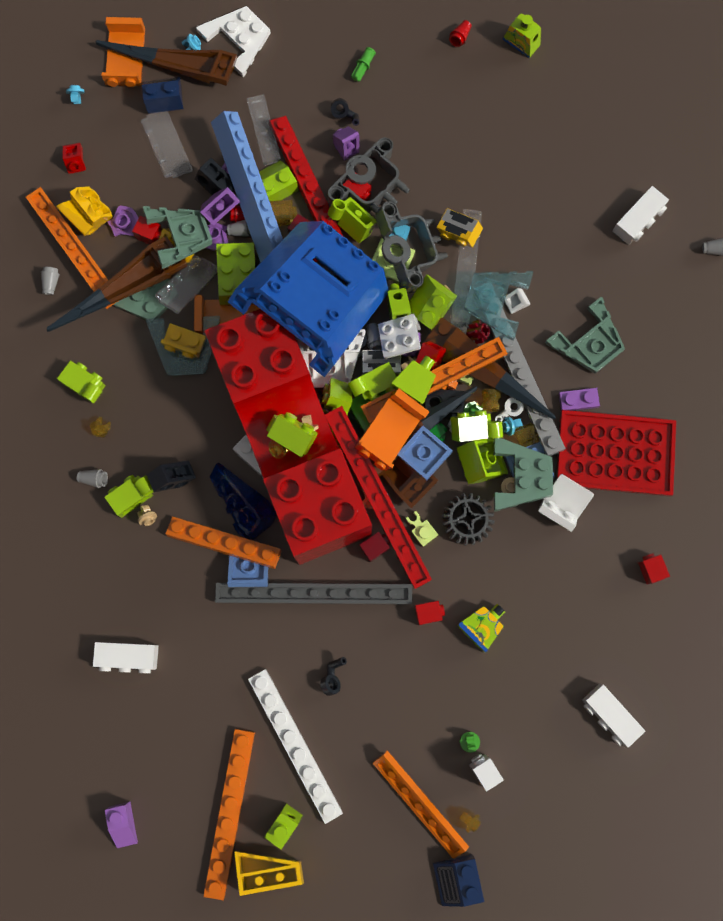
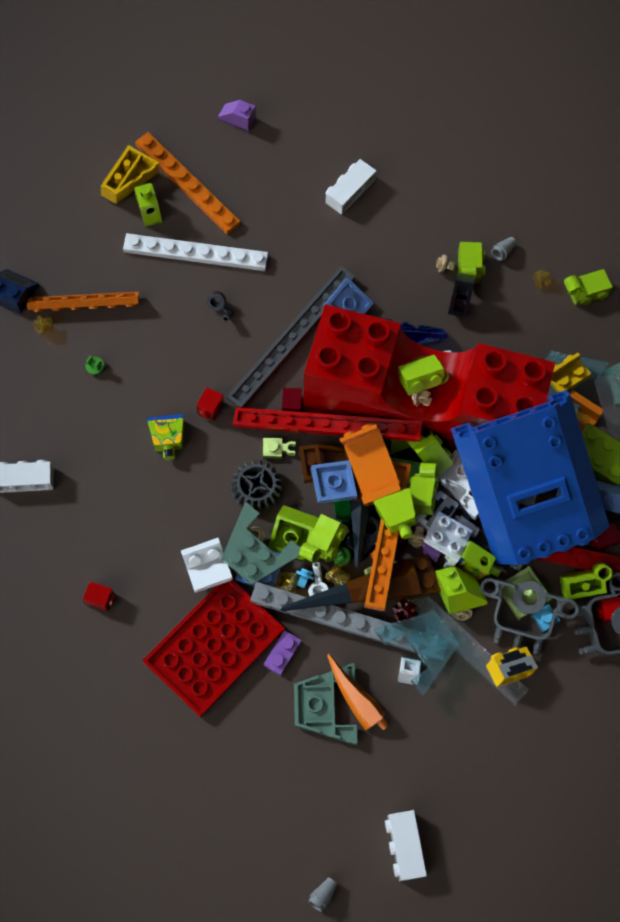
camera: 125 degrees right, 10 degrees down
(223, 542) = (392, 293): orange plate -> none
(433, 351) = (412, 551): red brick -> none
(485, 771) = (65, 354): white brick -> none
(570, 314) = (360, 702): none -> orange piece

